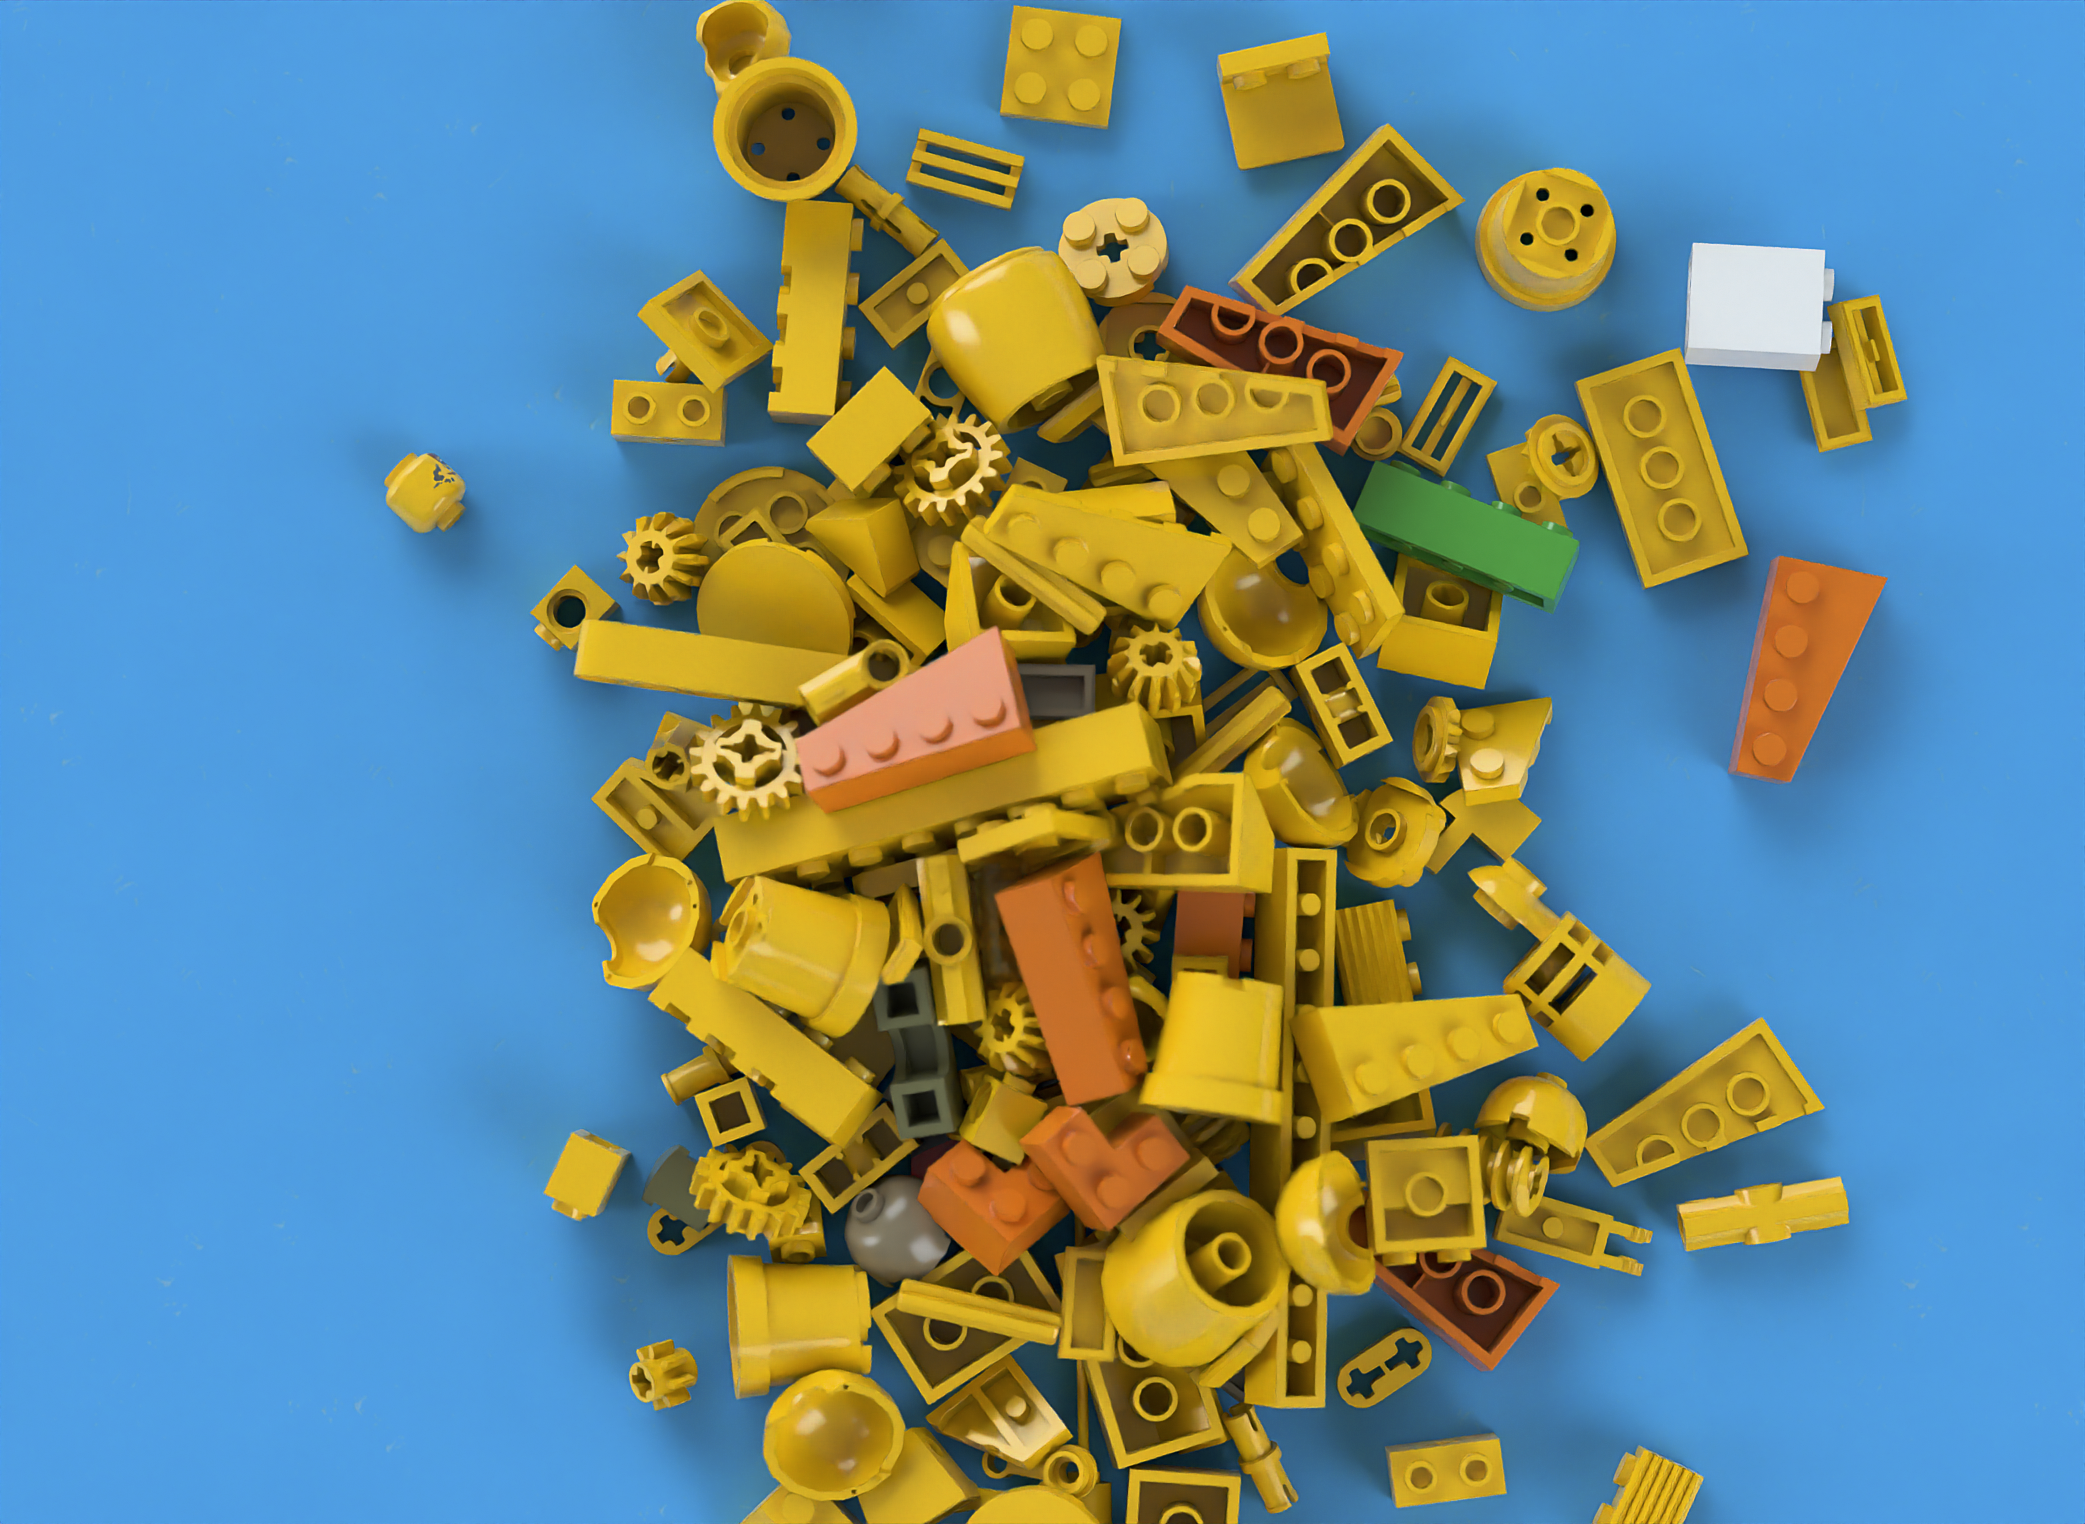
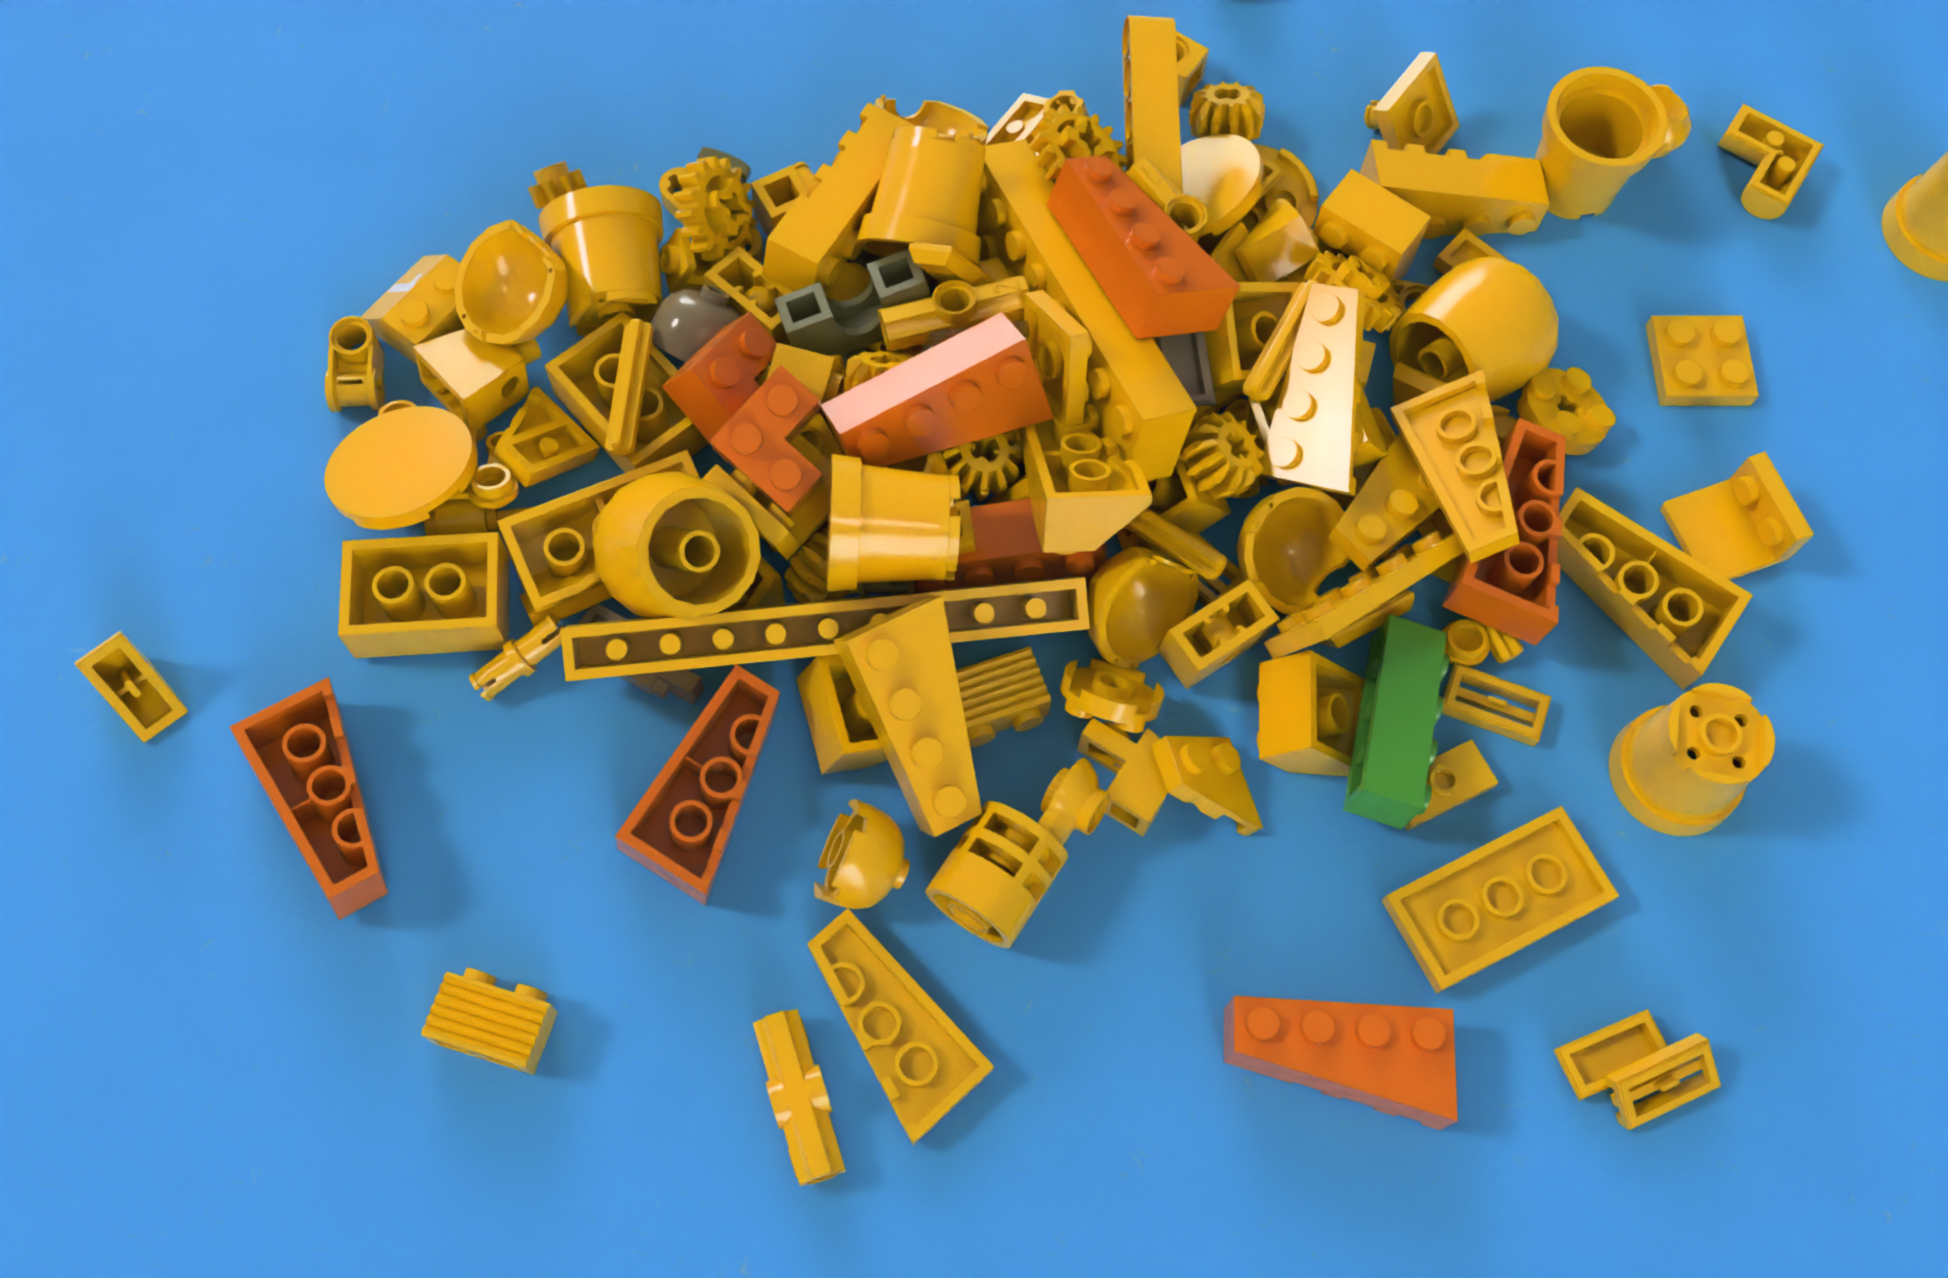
camera: 75 degrees right, 20 degrees down
(585, 1175) = (718, 106): yellow brick -> none
(668, 413) = (1342, 108): yellow brick -> none
(886, 211) = (1547, 243): yellow pin -> none
(997, 156) = (1597, 270): yellow tile -> none
(1085, 1323) = (620, 468): yellow tile -> none
(1245, 1349) = (614, 599): yellow tile -> none
(1314, 1226) = (734, 633): yellow cylinder -> none
(1391, 1378) = (605, 769): yellow beam -> none
(1424, 1198) = (773, 741): yellow plate -> none
(1436, 739) = (1204, 722): yellow gear -> none
(1445, 1470) = (518, 822): yellow brick -> none
(1506, 1179) = (809, 817): yellow piece -> none
(1555, 435) = (1505, 805): yellow gear -> none
(1570, 1234) = (759, 908): yellow hinge -> none
(1757, 307) = (1679, 961): white brick -> none

